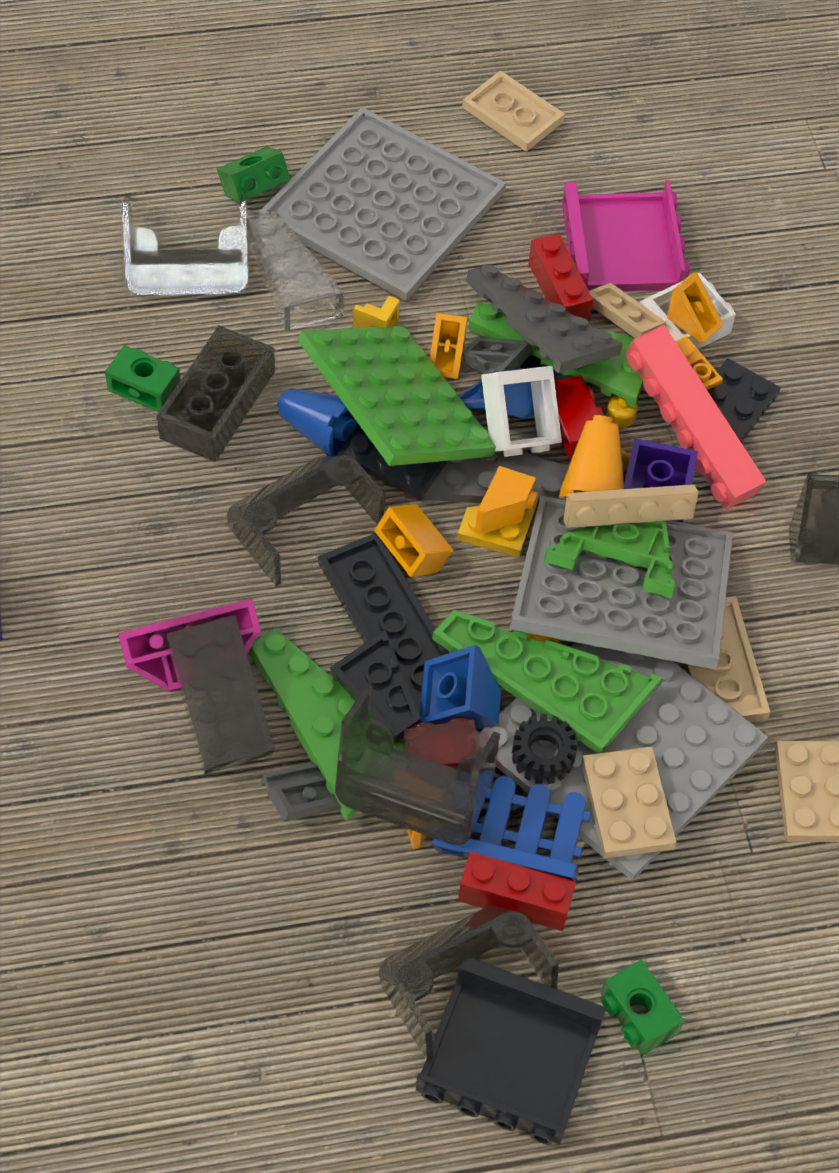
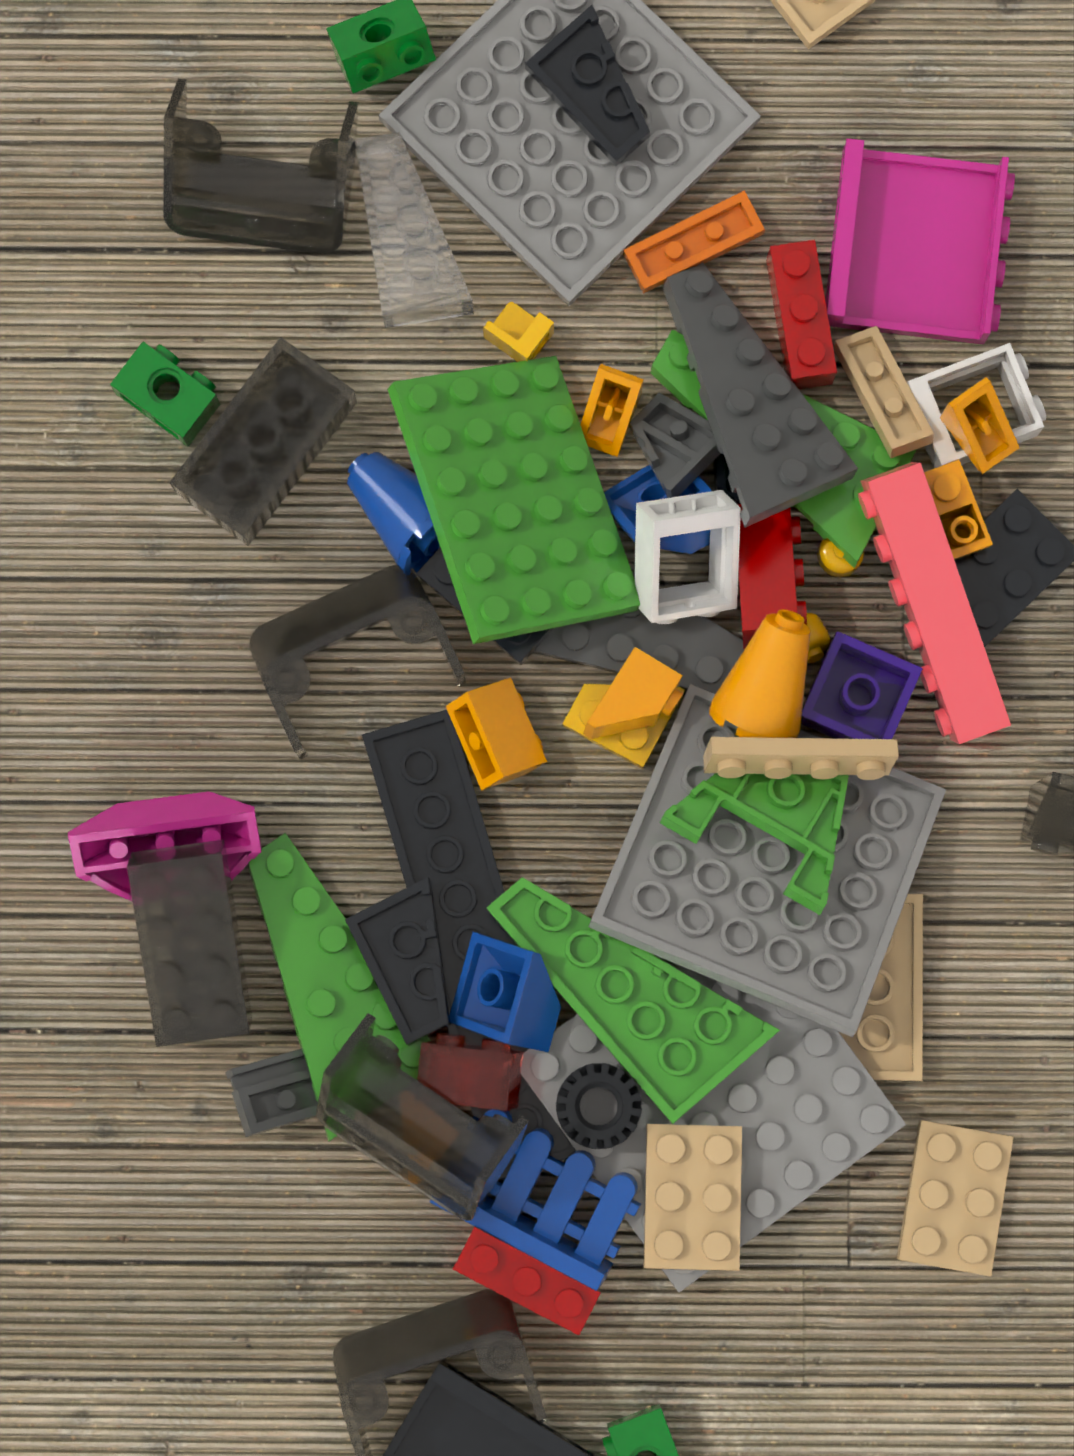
camera: 15 degrees right, 25 degrees up
(393, 176) = (589, 86): none -> black wing
(484, 250) = (694, 241): none -> orange plate

